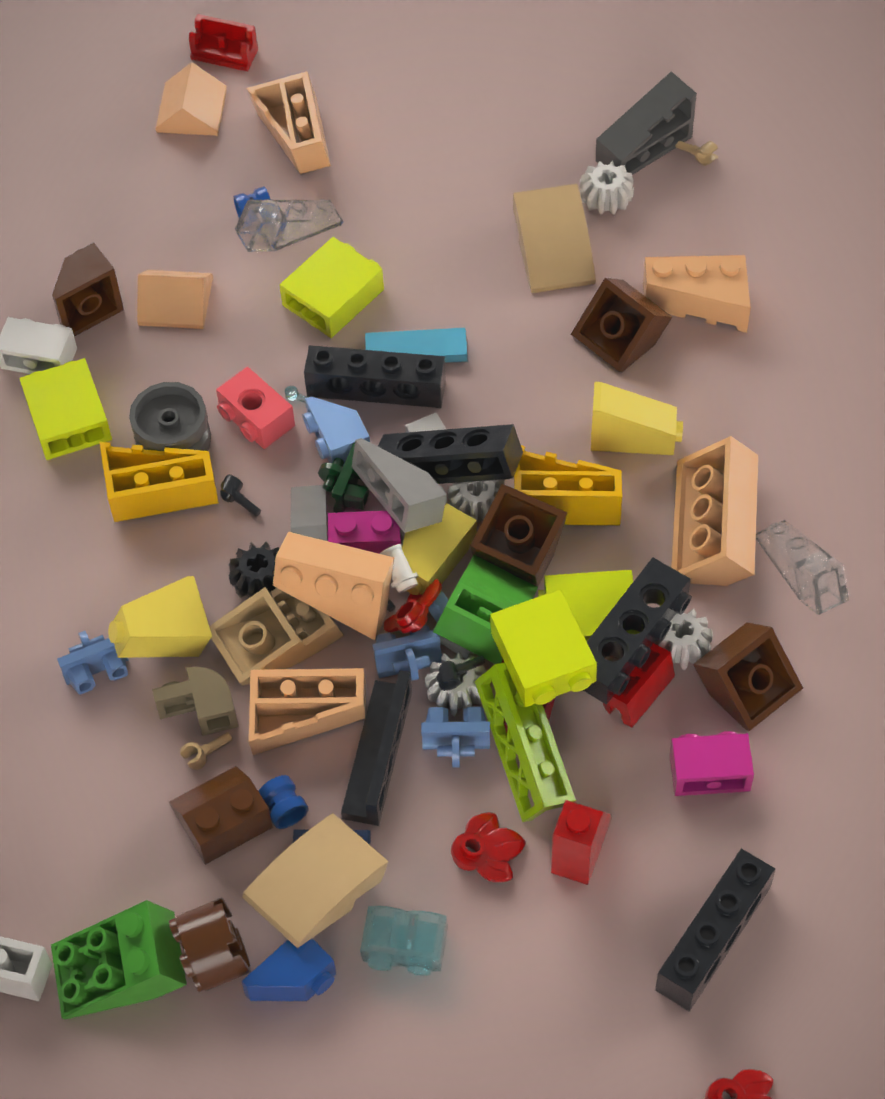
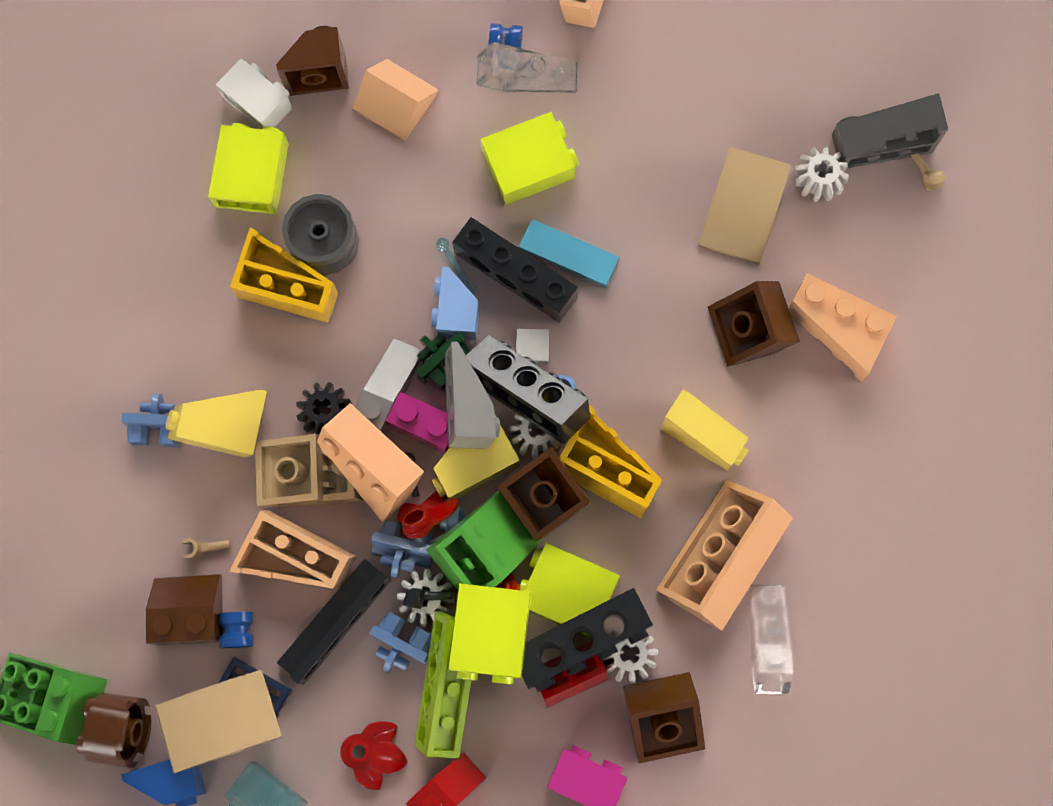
camera: 30 degrees right, 20 degrees up
(204, 693) = (227, 504): dark tan brick -> none
(231, 492) = (344, 316): black hand -> none
(246, 392) = (397, 230): coral brick -> none
(402, 574) = (429, 481): white pin -> none

